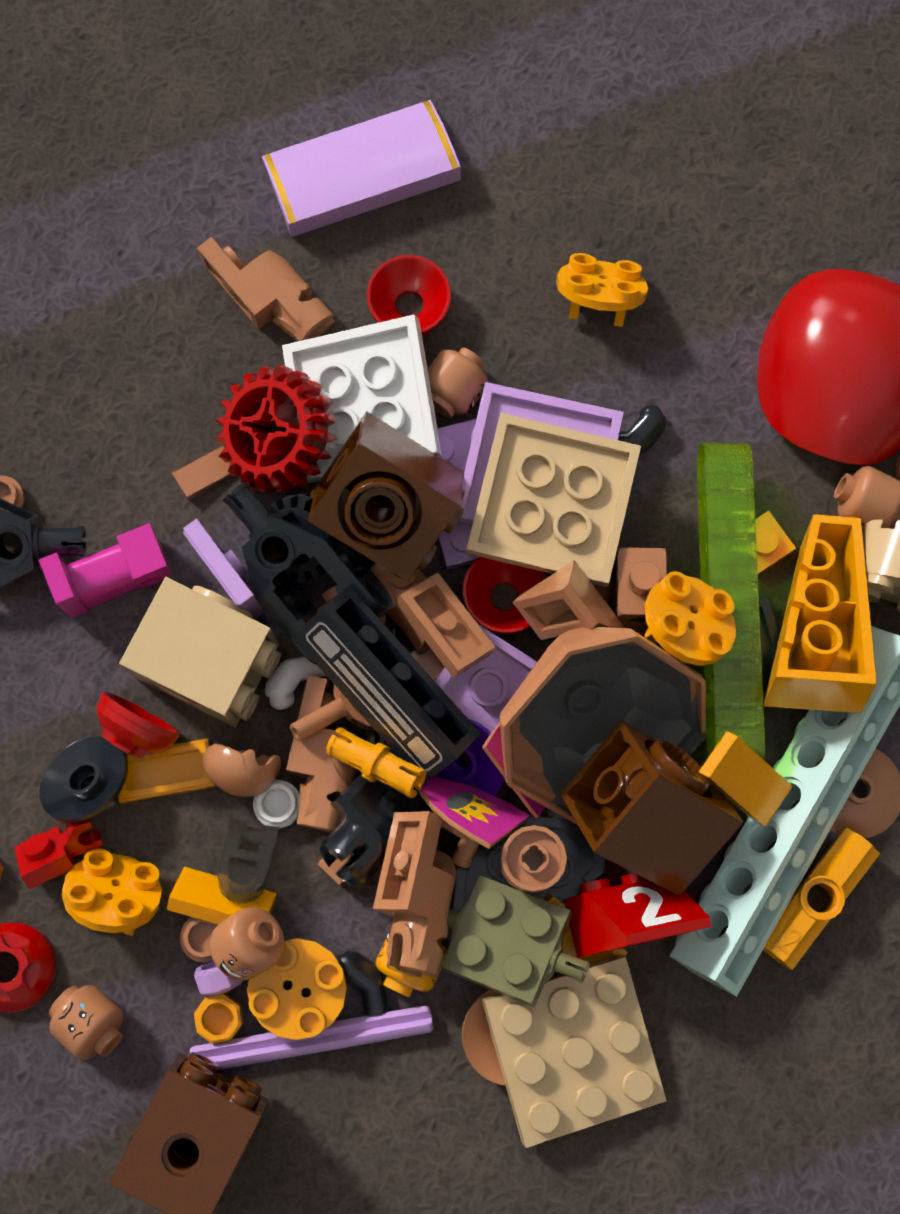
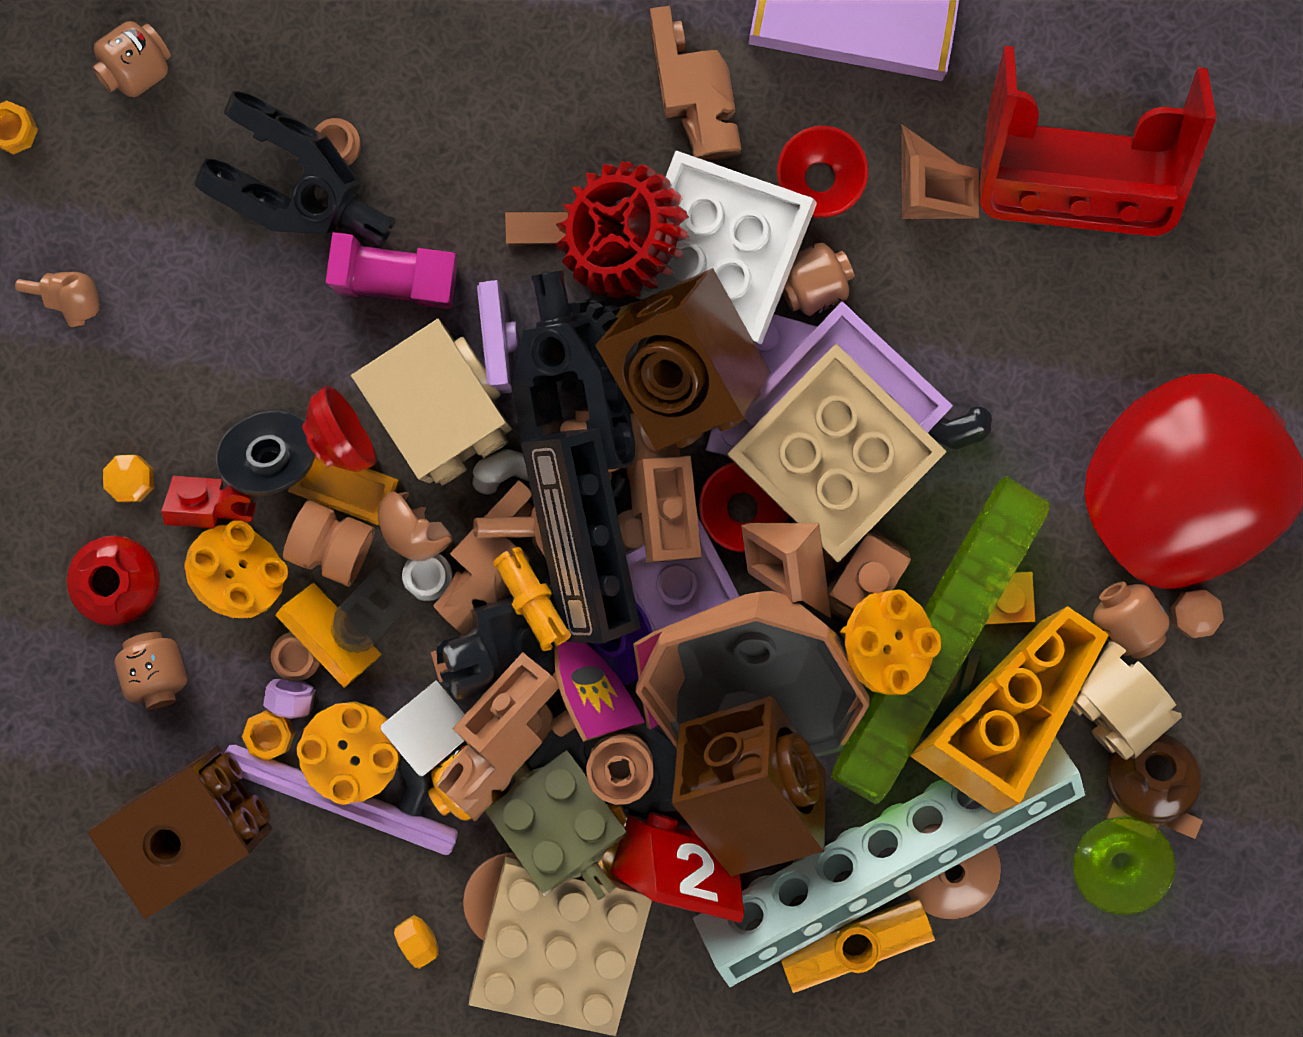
camera: 30 degrees right, 10 degrees up
(178, 823) = (323, 541): none -> nougat wheel
(243, 946) = (326, 690): nougat head -> none
(351, 931) = (424, 728): none -> white sticker
(449, 1120) = (416, 941): none -> light orange tile
(503, 258) = (935, 183): none -> nougat slope
(602, 285) = (1009, 268): light orange plate -> none
(622, 185) = (1087, 176): none -> red windscreen
(745, 779) = (852, 811): light orange tile -> none

